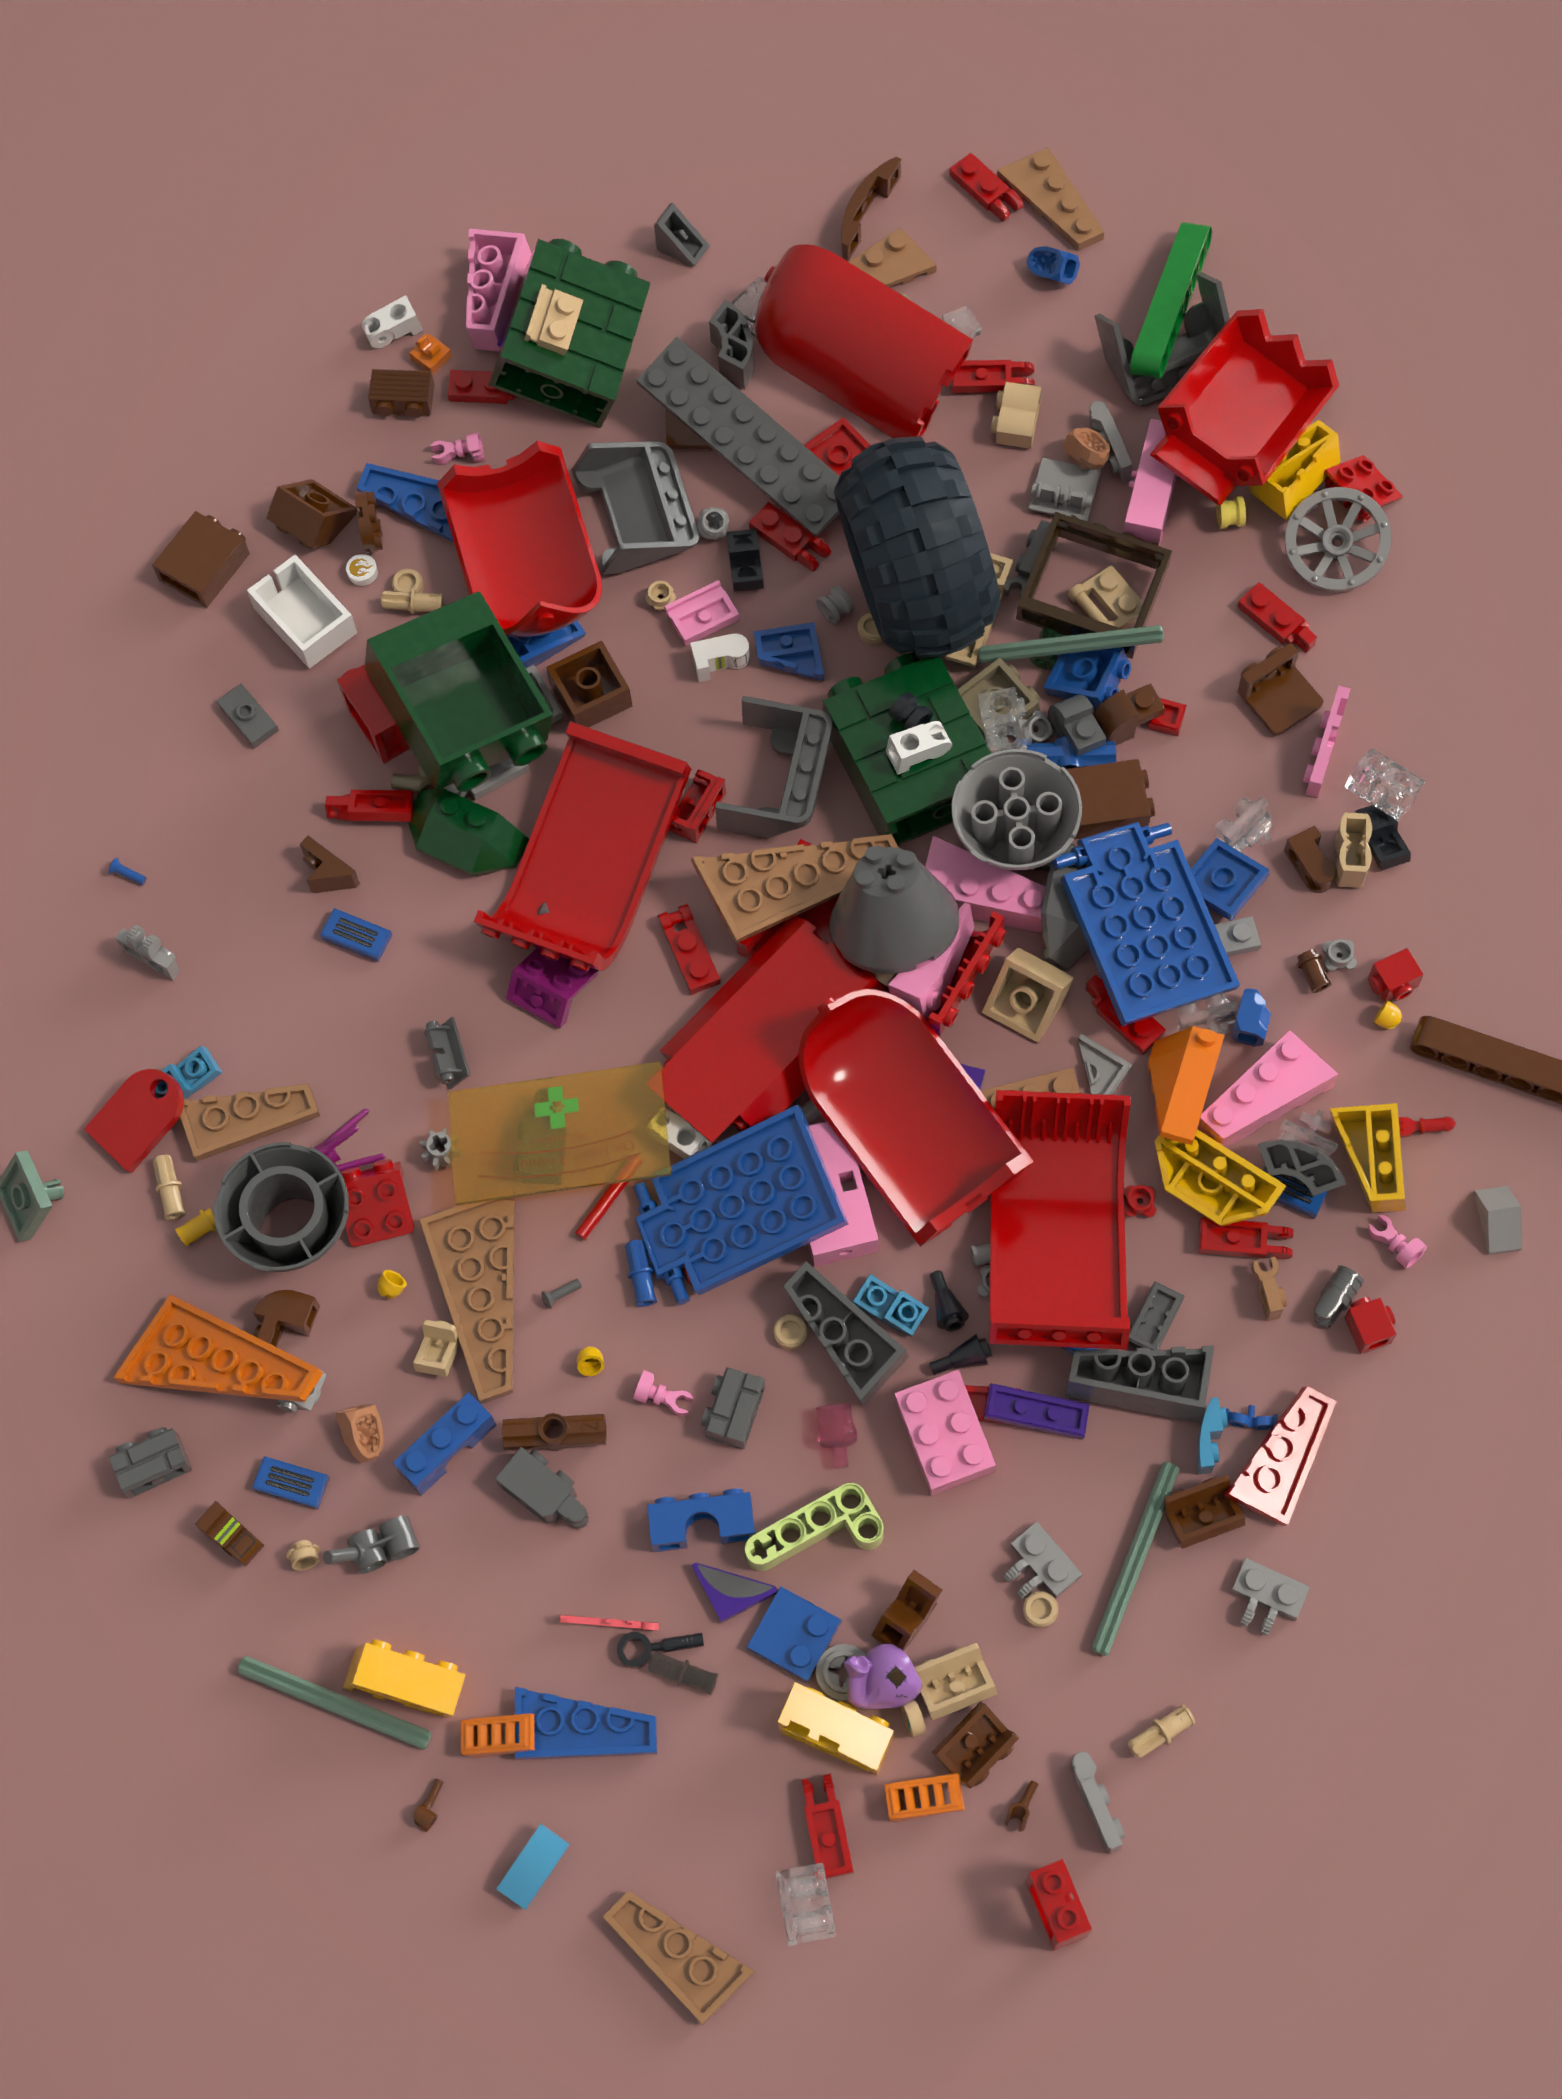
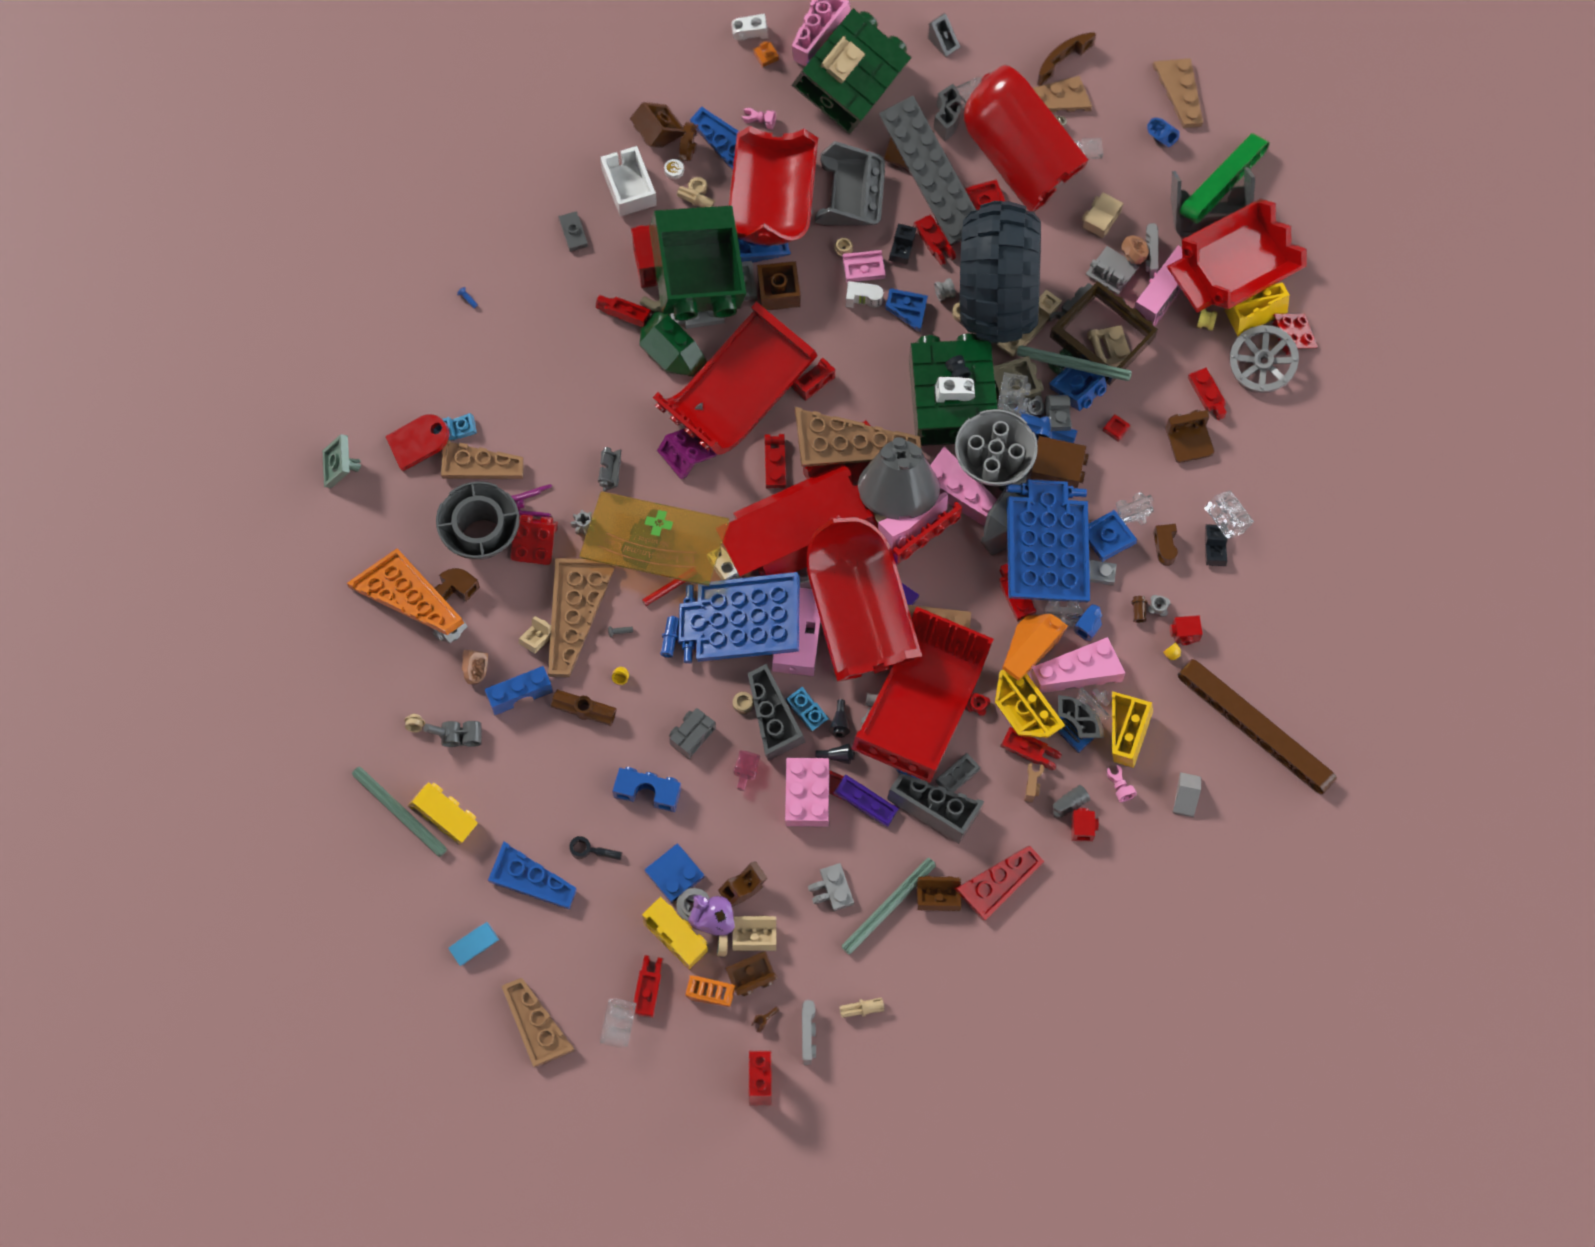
camera: 15 degrees right, 0 degrees up
(148, 951) = (461, 347): light grey hinge -> none
(150, 1462) = (348, 638): dark grey brick -> none
(168, 1187) = (420, 487): tan axle -> none
(197, 1227) = (426, 516): yellow pin -> none
(201, 558) = (582, 129): reddish brown brick -> none
(229, 1534) = (377, 695): reddish brown leg -> none
(290, 1482) = (423, 680): blue tile -> none
(329, 872) = (583, 339): reddish brown slope -> none
(356, 934) = (585, 382): blue tile -> none
(390, 1284) = (525, 589): yellow hinge -> none
(401, 392) = (739, 71): reddish brown brick -> none
(423, 1815) = (424, 891): reddish brown hand -> none
(474, 388) = (782, 82): red hinge -> none
(476, 1737) = (471, 858): orange slope -> none
(541, 1489) = (563, 737): dark grey hinge -> none
(609, 1622) = (571, 826): coral piece -> none
(646, 1389) = (646, 704): bright pink piece -> none
(682, 1672) = (602, 870): clear smoke axle -> none
(713, 523) = (892, 215): light grey piece -> none
(730, 1592) = (647, 836): tile -> none
(795, 733) = (889, 358): dark grey windscreen -> none
(811, 1533) = (707, 820): yellowish green beam -> none
(985, 186) = (1142, 68): red hinge -> none
(991, 375) = (1096, 185): red hinge -> none
(1027, 994) = (962, 560): tan slope -> none
(1040, 1609) = (821, 913): tan tile -> none
(1102, 1067) = (989, 619): light grey tile -> none
(1124, 712) = (1088, 415): reddish brown brick -> none
(1211, 1428) = (965, 845): dark azure slope -> none
(1244, 1421) = (989, 853): blue piece -> none
(1269, 1590) = (959, 953): light grey hinge -> none
(1323, 746) = (1202, 479): bright pink wing -> none
(1353, 850) = (1192, 546): tan brick -> none
(1409, 1127) = (1156, 721): red piece -> none

